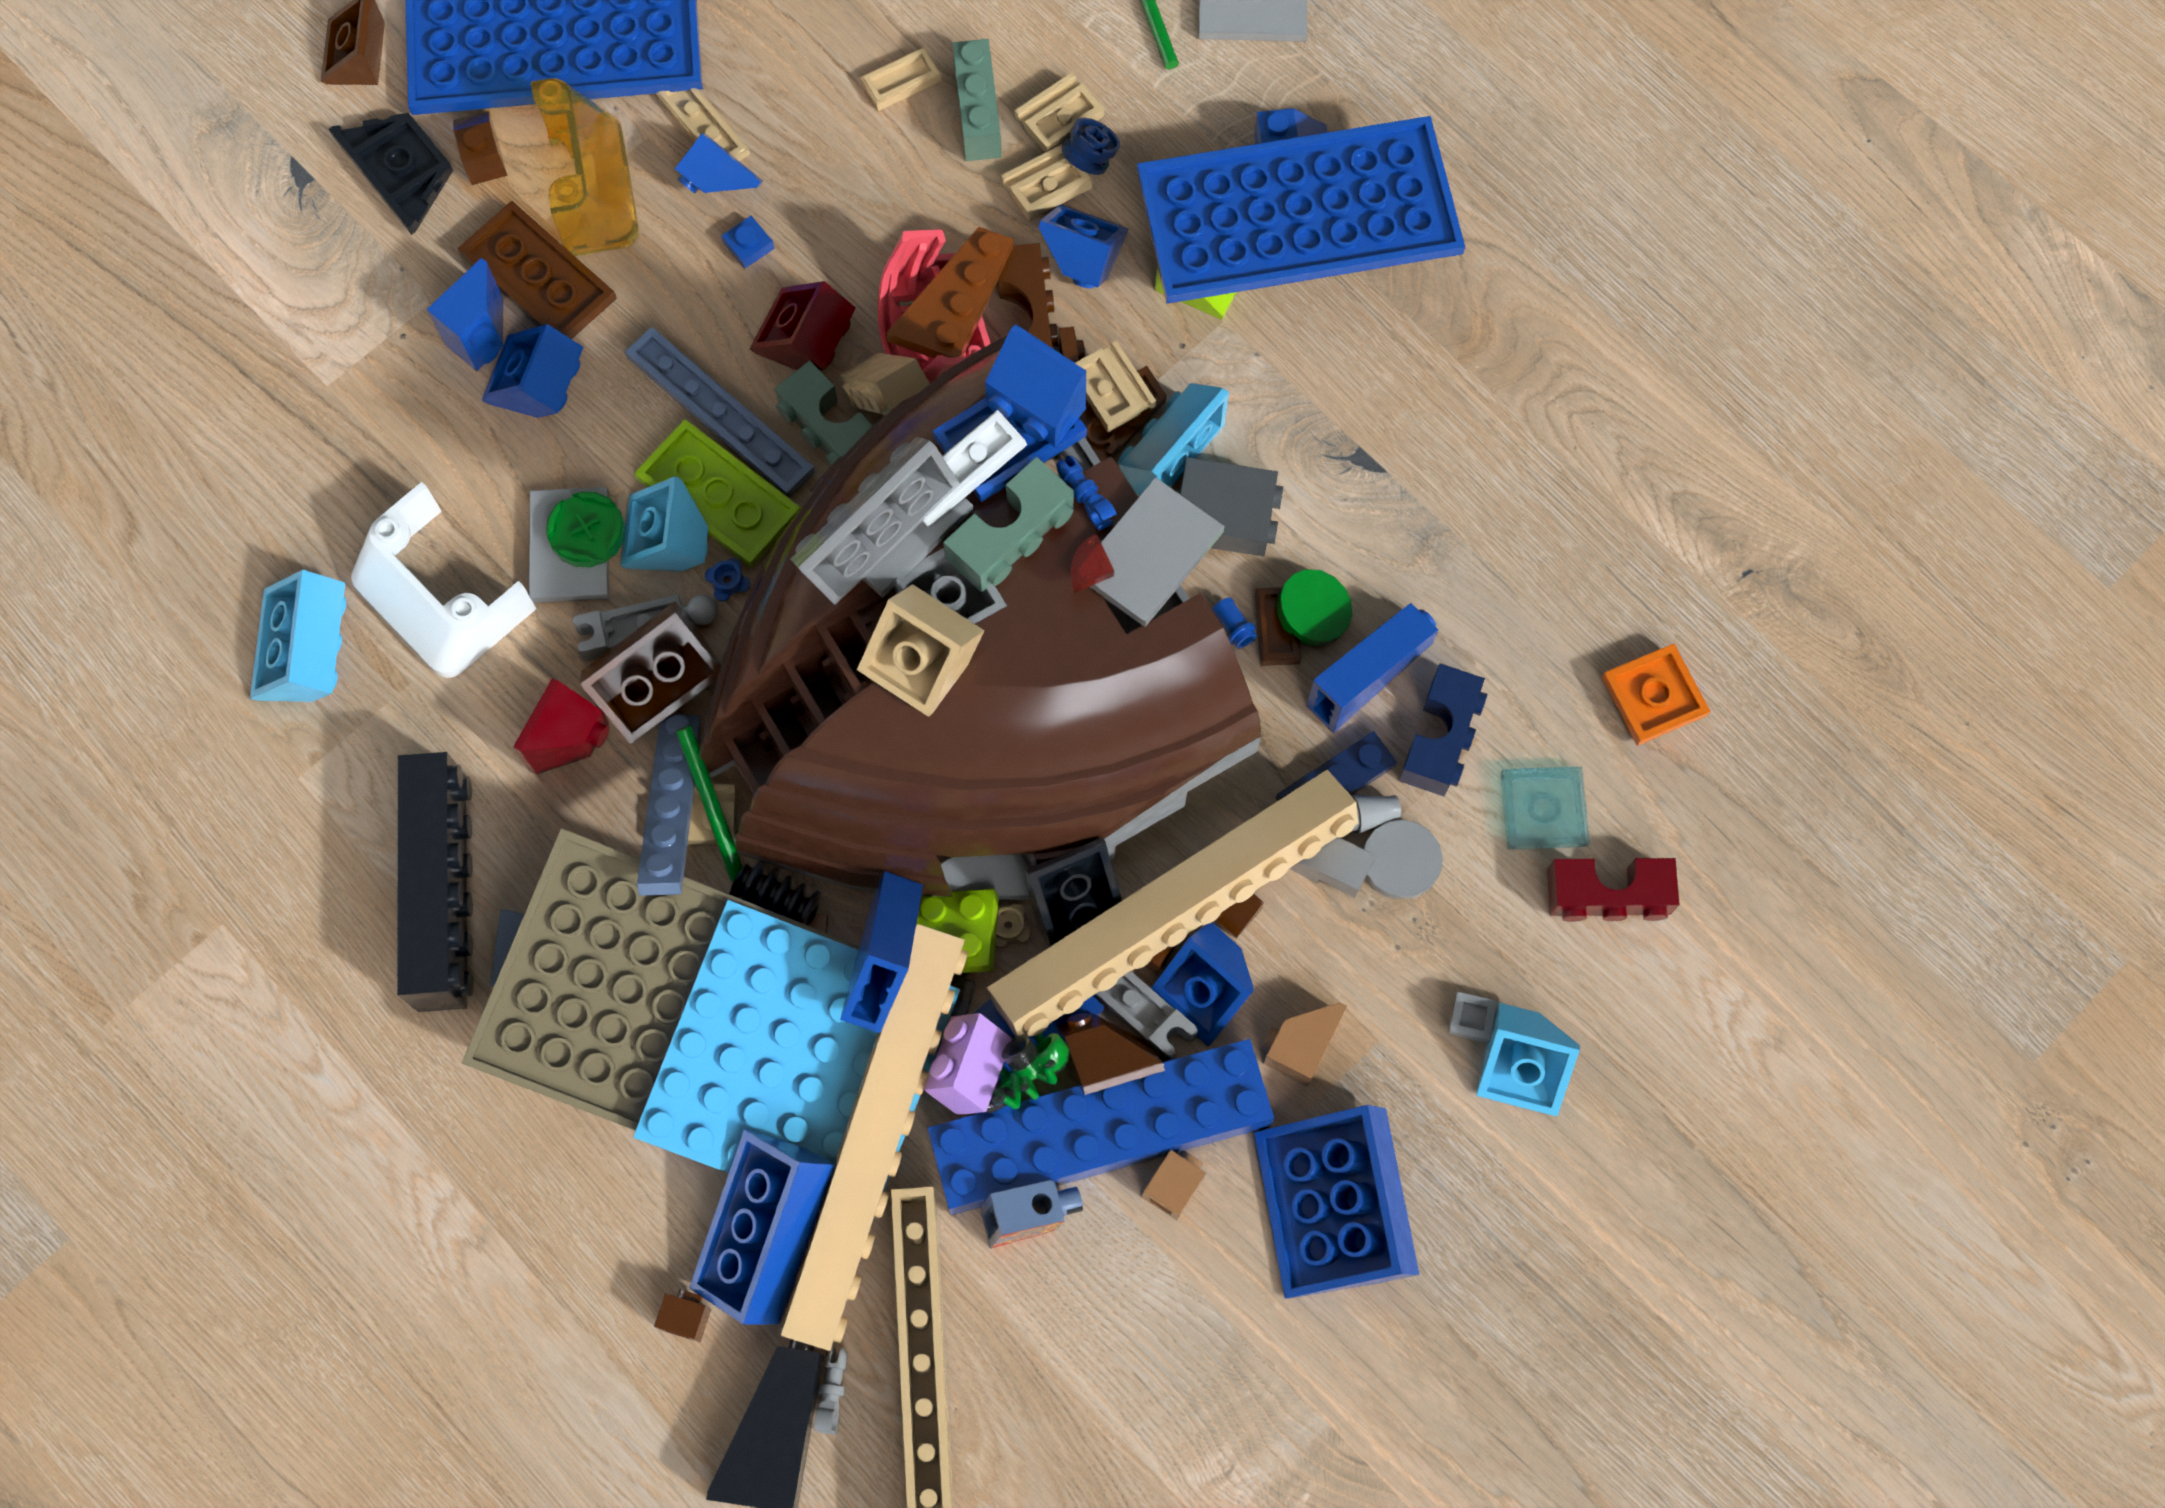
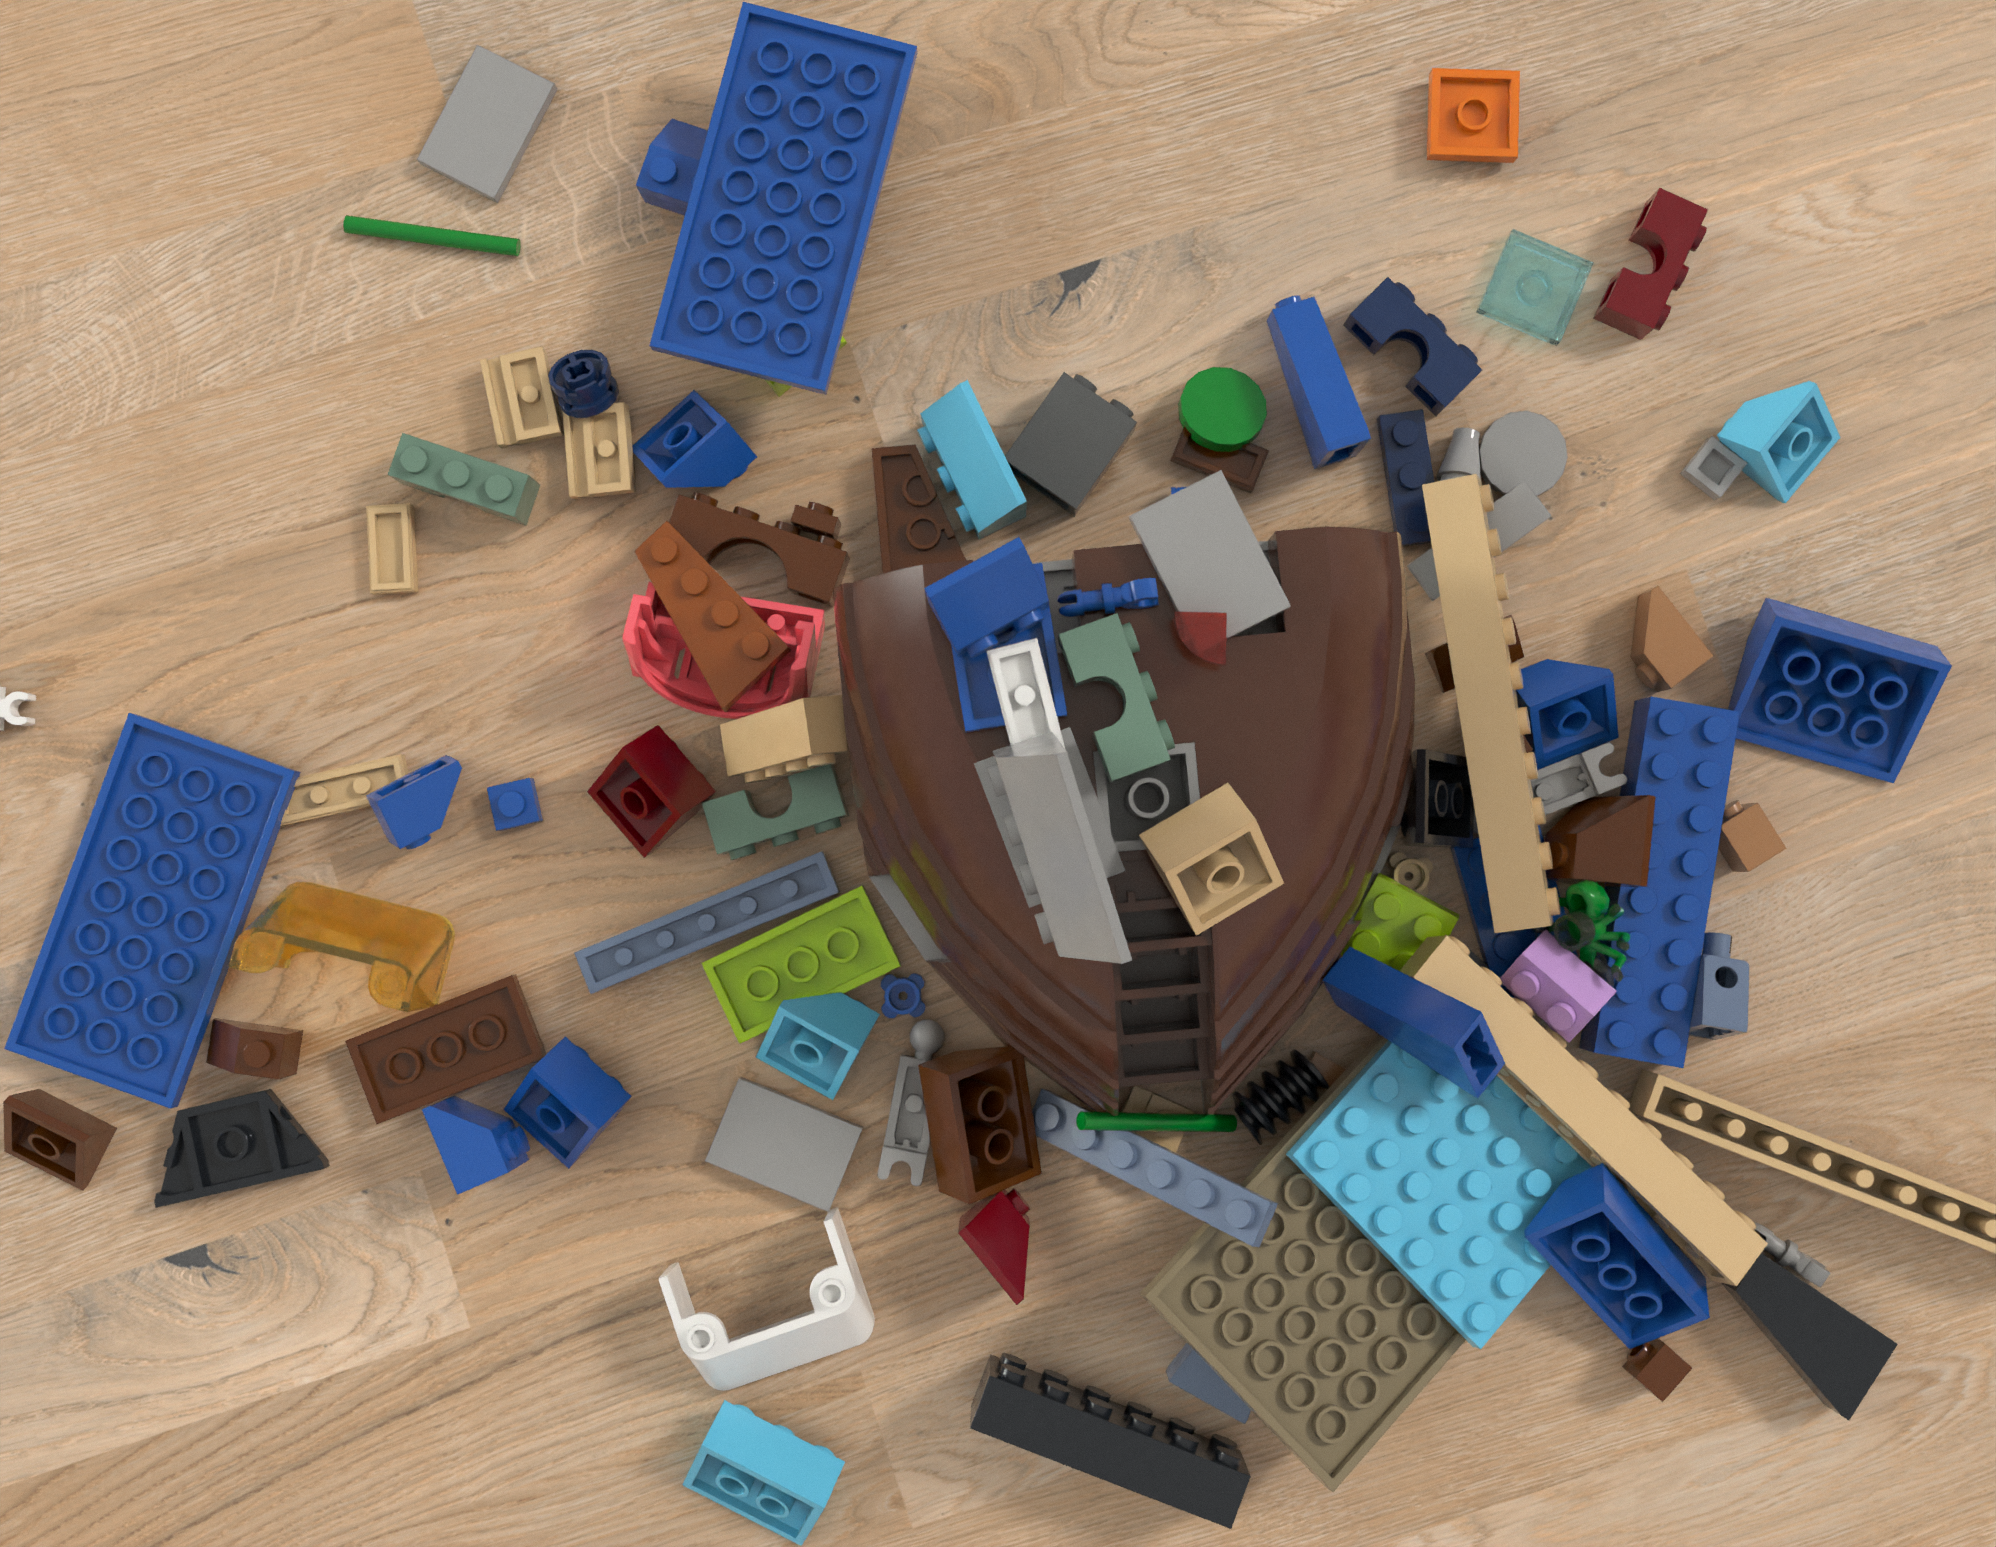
camera: 60 degrees left, 15 degrees up
(586, 529) = (780, 1121): green tile -> none
(1114, 387) = (884, 497): tan plate -> none

